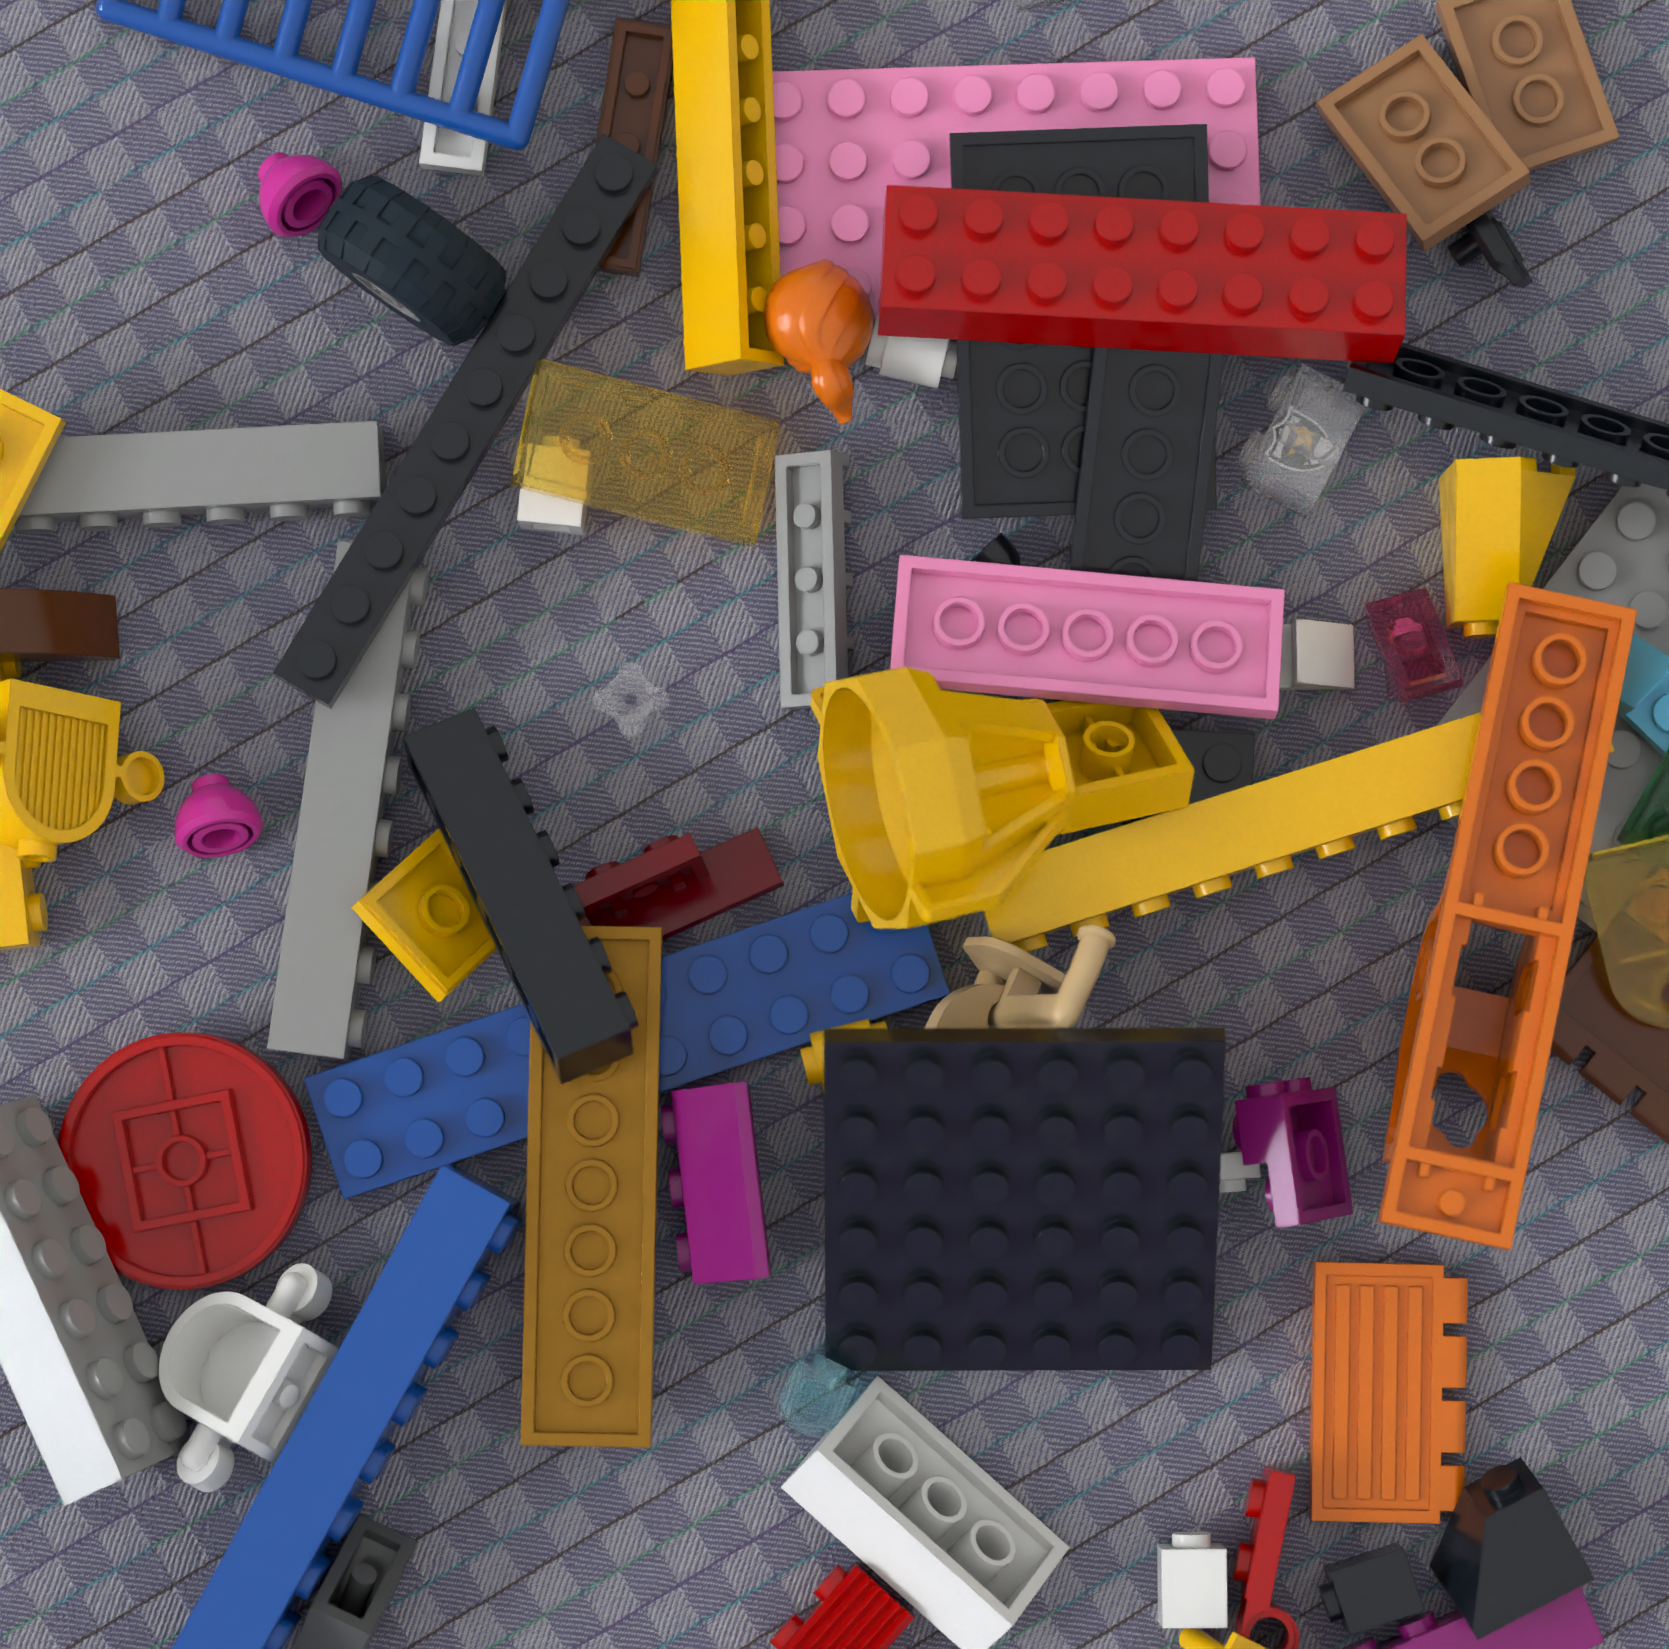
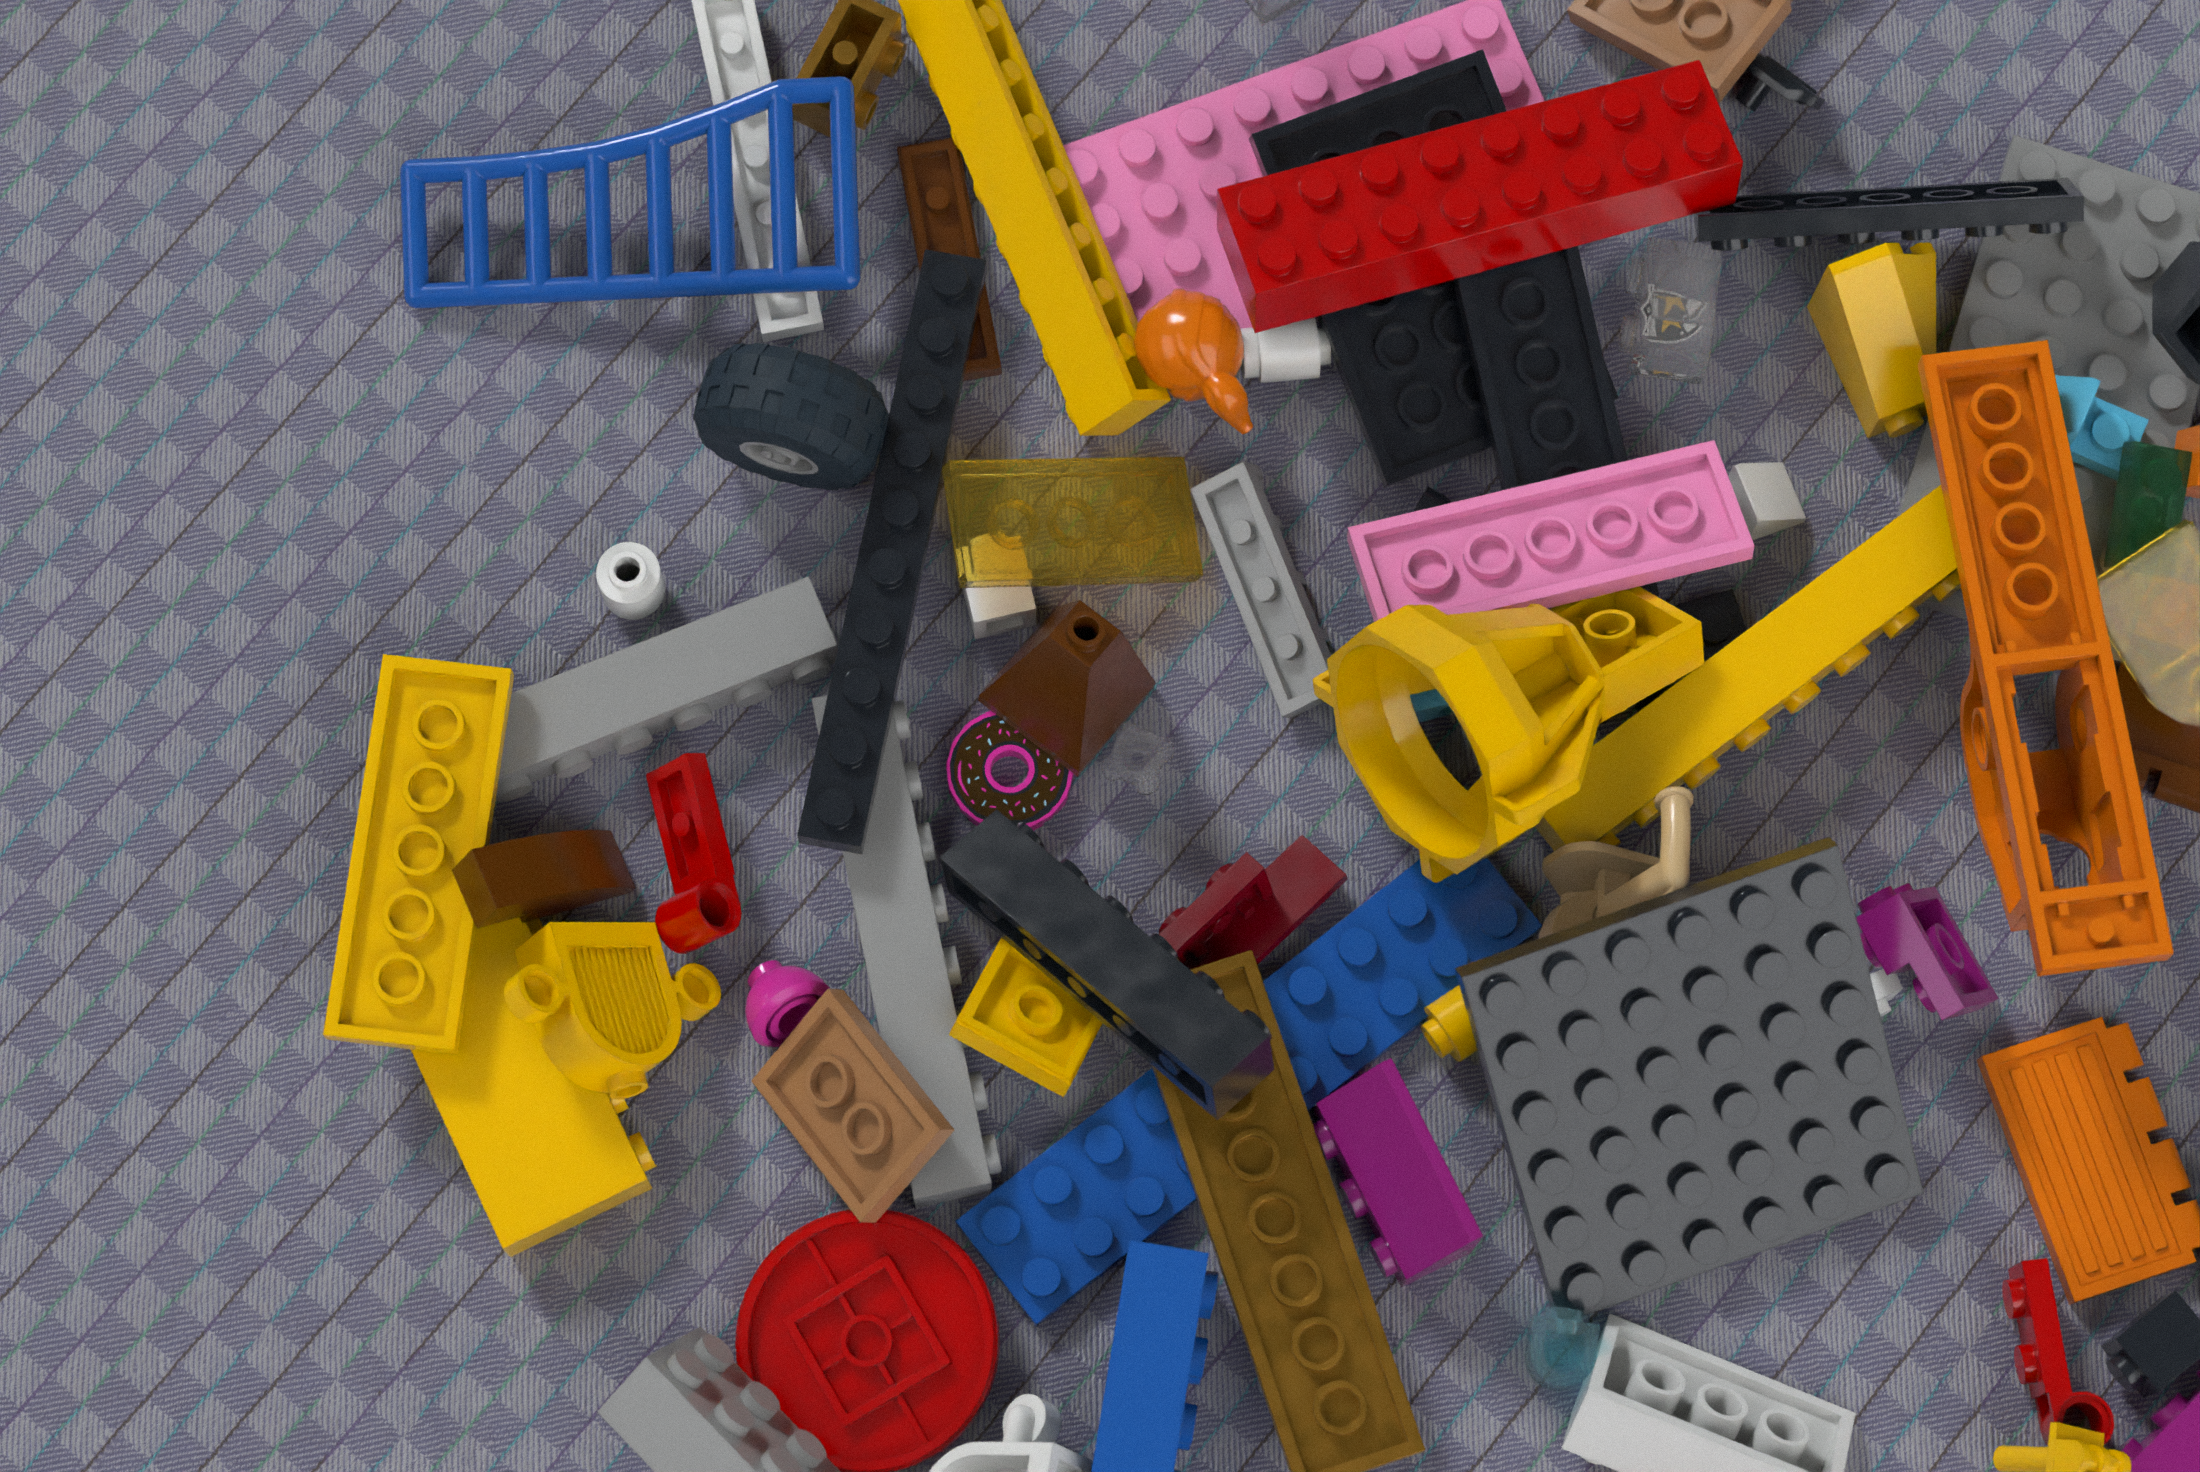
camera: 25 degrees left, 10 degrees down
(182, 652) = (696, 856): none -> red plate
(222, 379) = (636, 597): none -> white brick
(240, 941) = (852, 1105): none -> medium nougat plate
(296, 192) = (656, 399): dark pink brick -> none
(499, 632) = (979, 795): none -> tile
(587, 611) = (1070, 685): none -> reddish brown slope
(1192, 1582) = (1986, 1400): white brick -> none
(1412, 646) = (1847, 458): clear pink slope -> none

